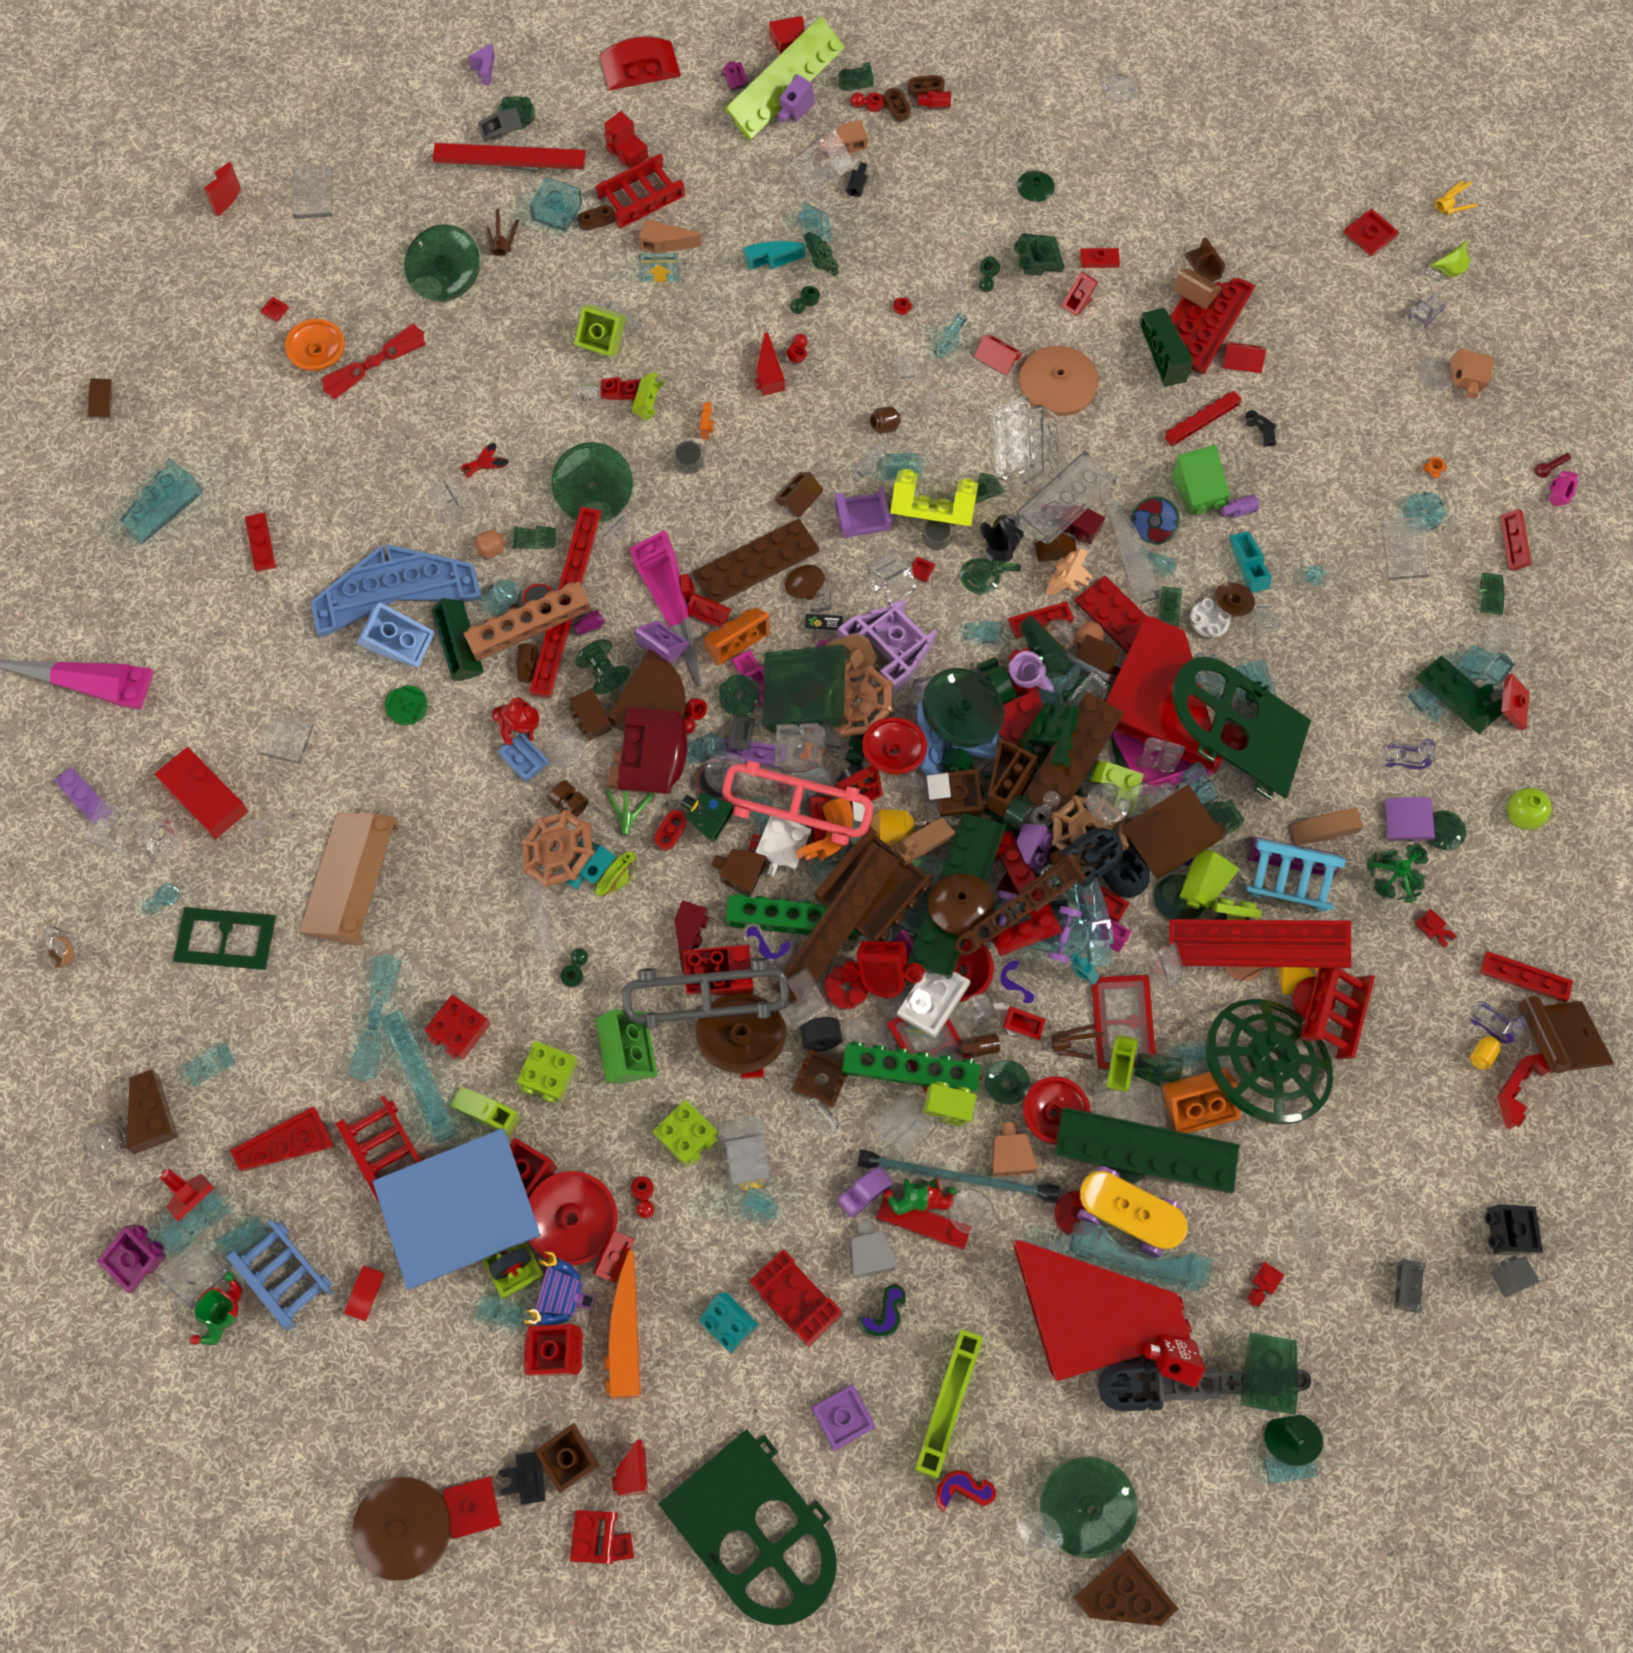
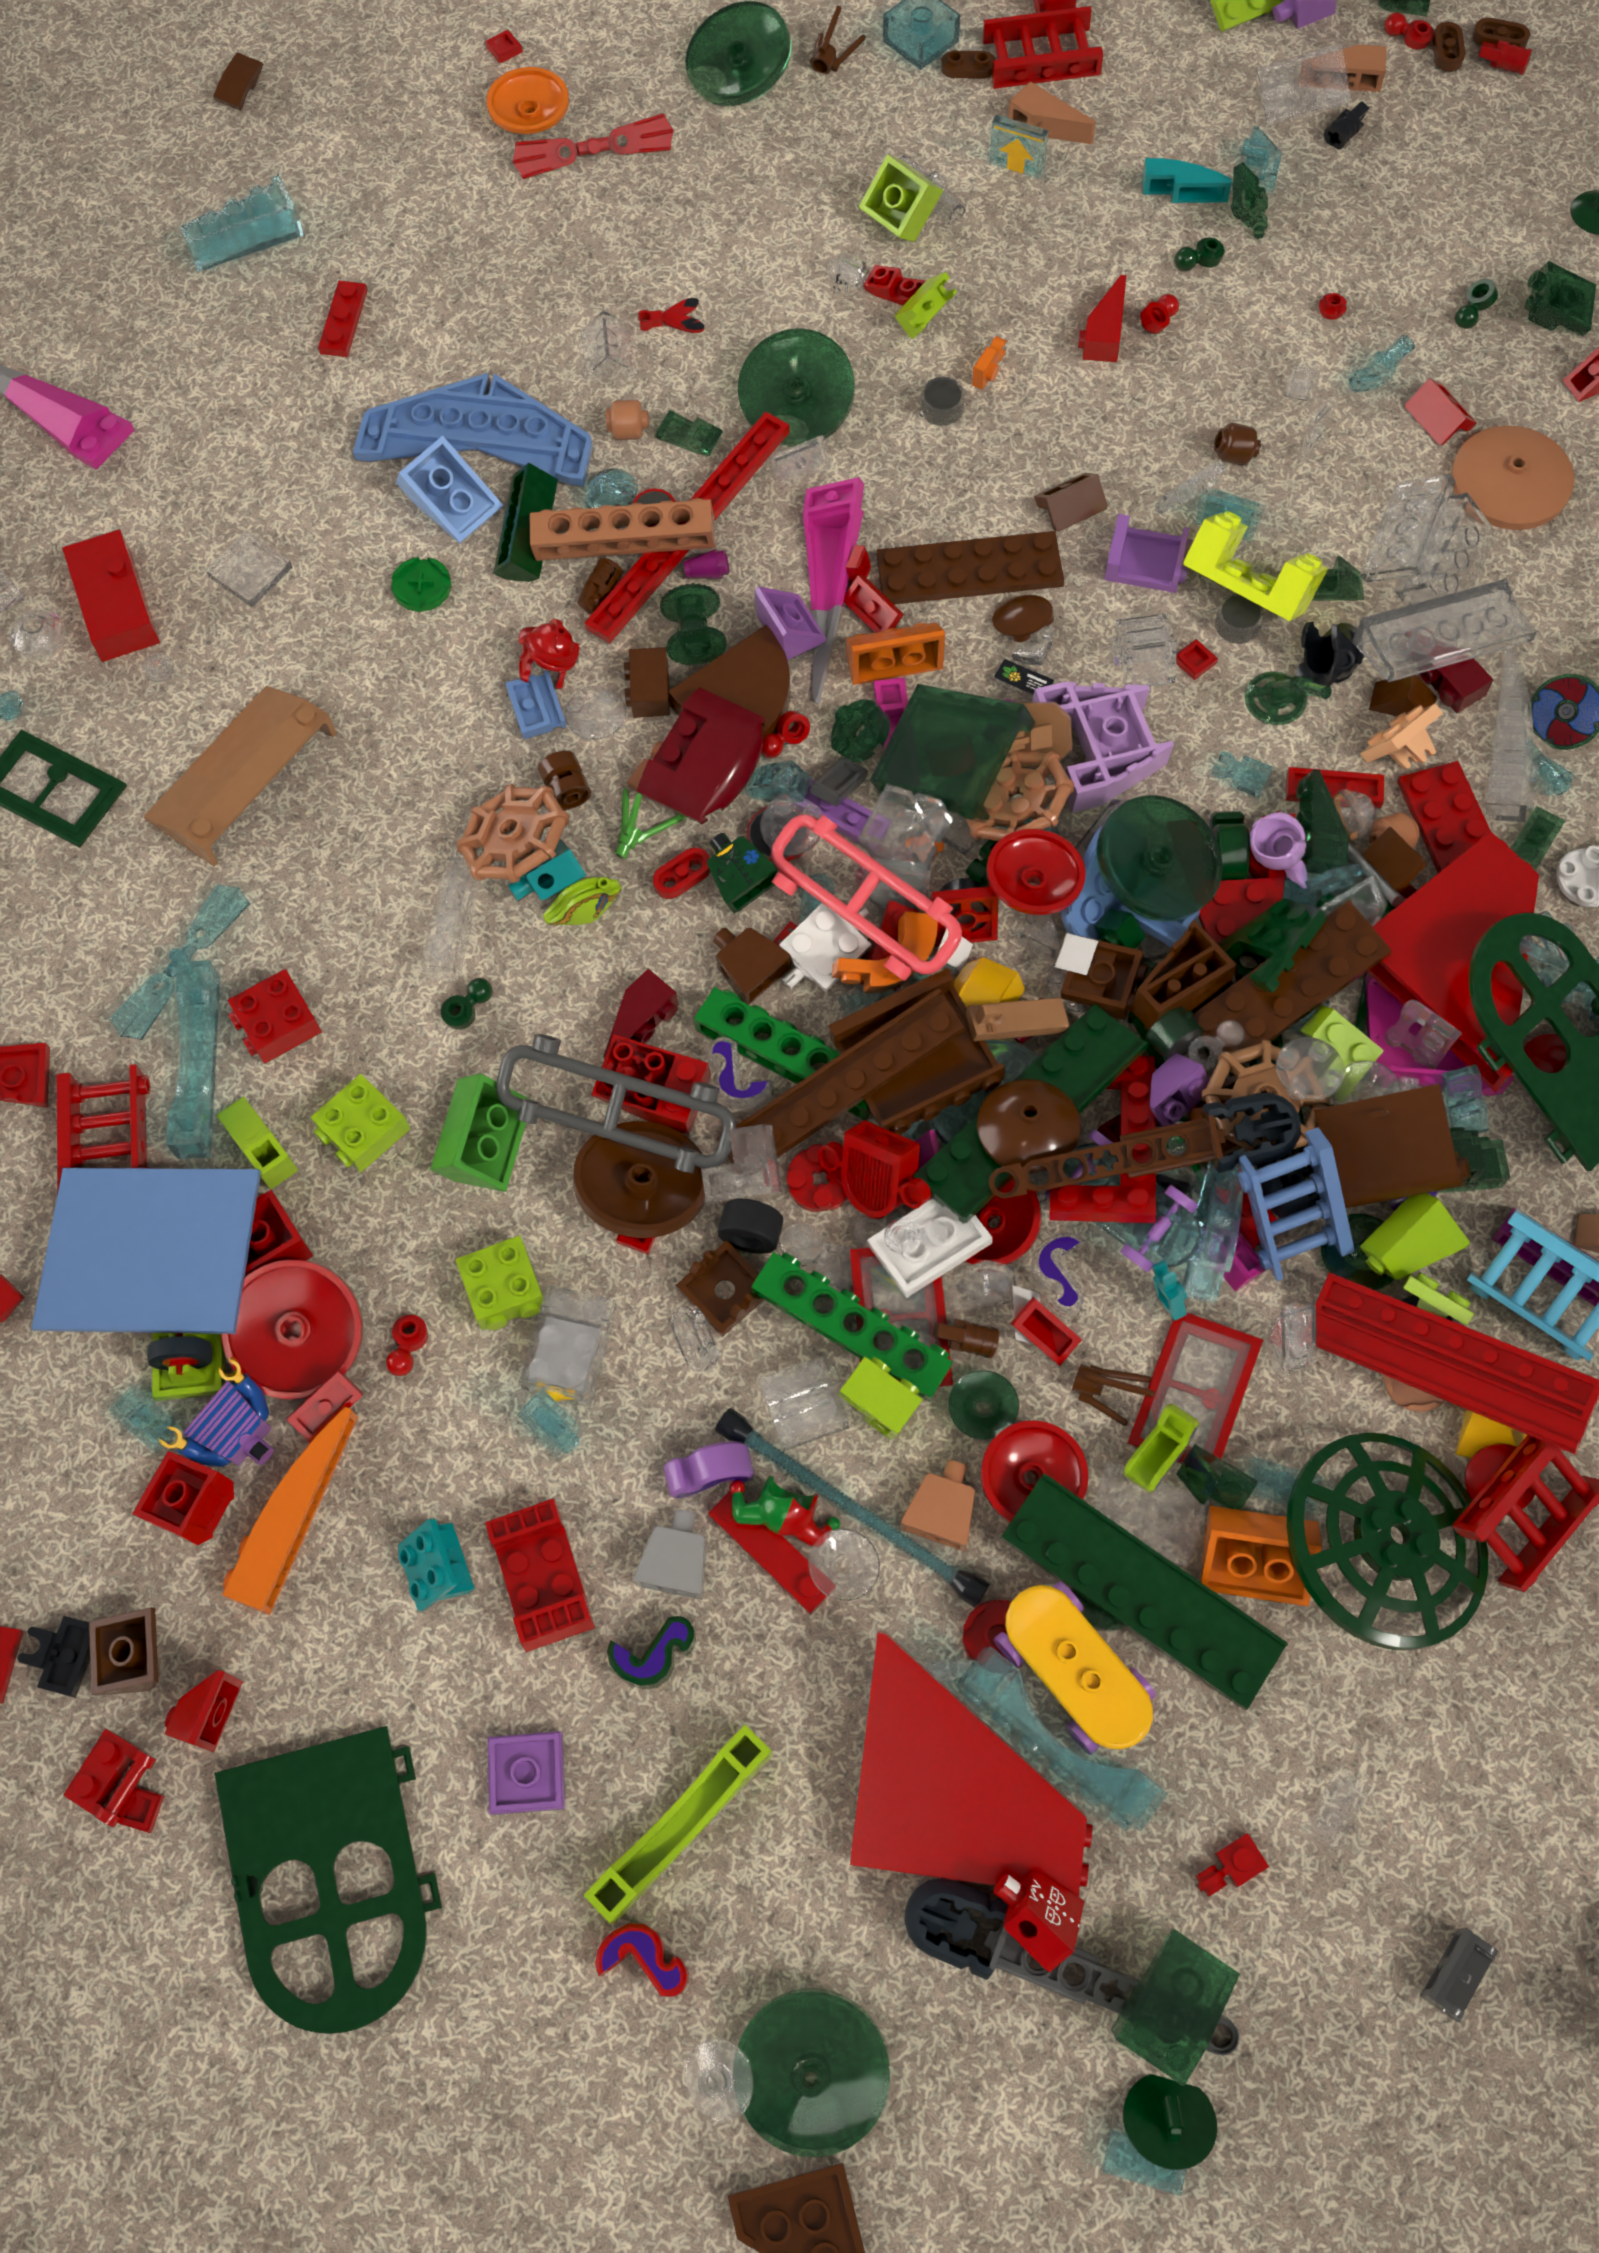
camera: 30 degrees right, 0 degrees up
(1154, 880) = (1330, 1206): none -> medium blue fence

